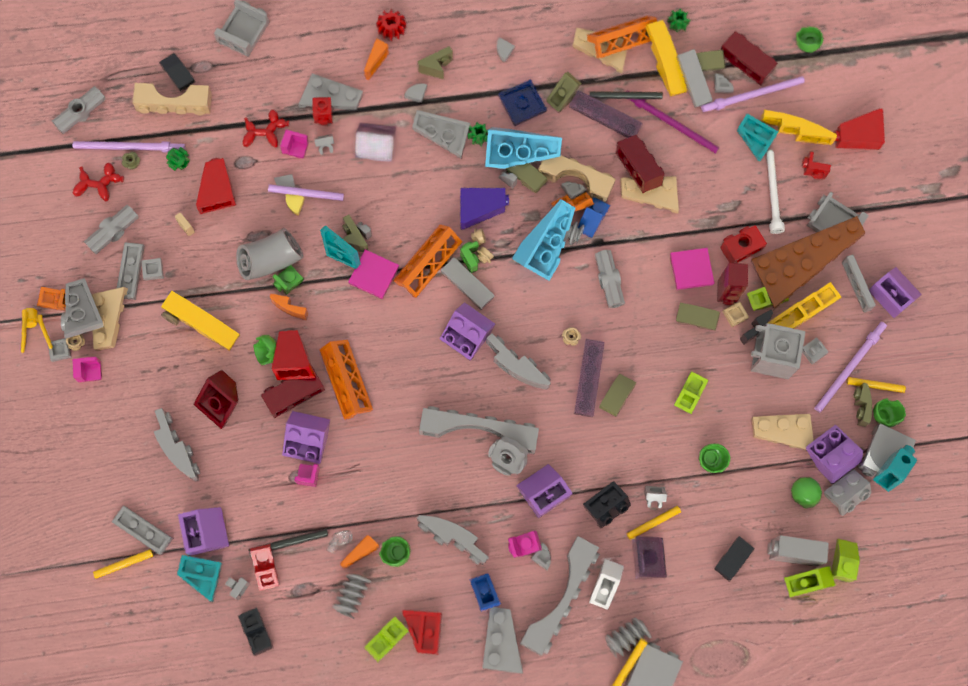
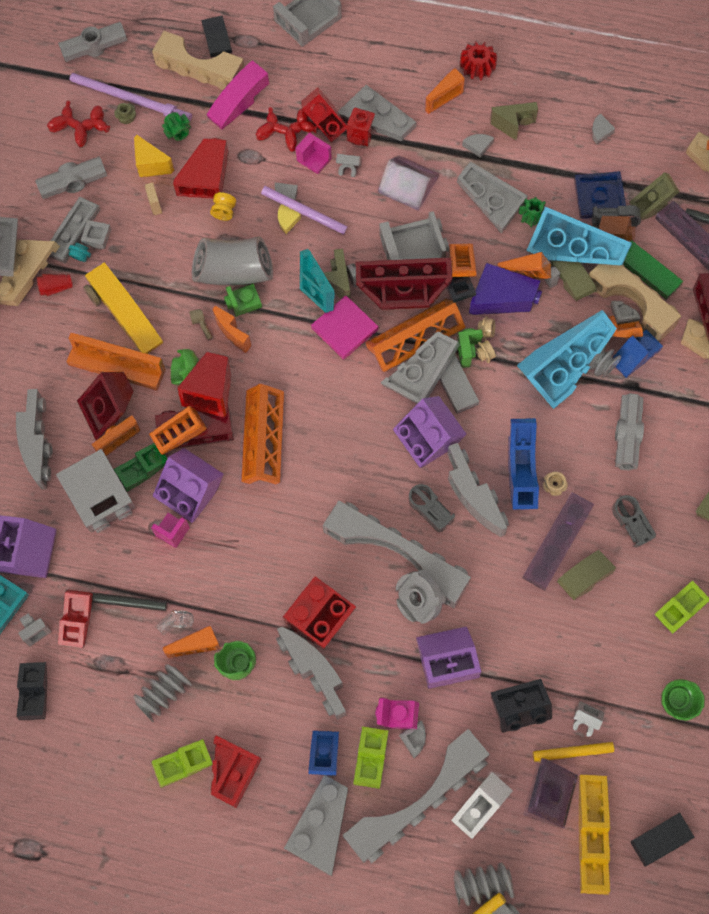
camera: 30 degrees right, 5 degrees down
(134, 320) = (53, 283): none -> red cone
(145, 287) = (79, 252): none -> teal plate
(169, 193) = (151, 160): none -> yellow slope
(208, 363) = (106, 357): none -> orange fence
(215, 116) = (238, 95): none -> dark pink slope
(236, 421) = (117, 435): none -> orange plate
(239, 465) = (91, 483): none -> light grey container
(242, 211) = (223, 206): none -> yellow wheel
(258, 306) = (198, 317): none -> dark tan hand
(265, 436) = (142, 467): none -> green slope
(289, 404) = (182, 437): none -> orange slope
(290, 109) = (324, 114): none -> red slope
(399, 190) = (414, 239): none -> light grey panel
(406, 224) = (404, 281): none -> dark red wedge
(440, 188) = (462, 260): none -> orange slope
(442, 495) = (318, 613): none -> red slope
(445, 286) = (423, 370): none -> light grey wing
(446, 211) = (460, 289): none -> black slope
(492, 390) = (433, 511): none -> dark grey piece
(494, 179) = (532, 266): none -> orange slope
(517, 581) = (371, 757): none -> lime slope
(543, 332) = (522, 464): none -> blue arch
(544, 116) = (629, 210): none -> dark grey piece
(546, 126) = (618, 226): none -> dark orange brick
(581, 150) = (651, 271): none -> green tile
(639, 345) = (637, 525): none -> dark grey piece
(688, 573) = (594, 835): none -> yellow slope

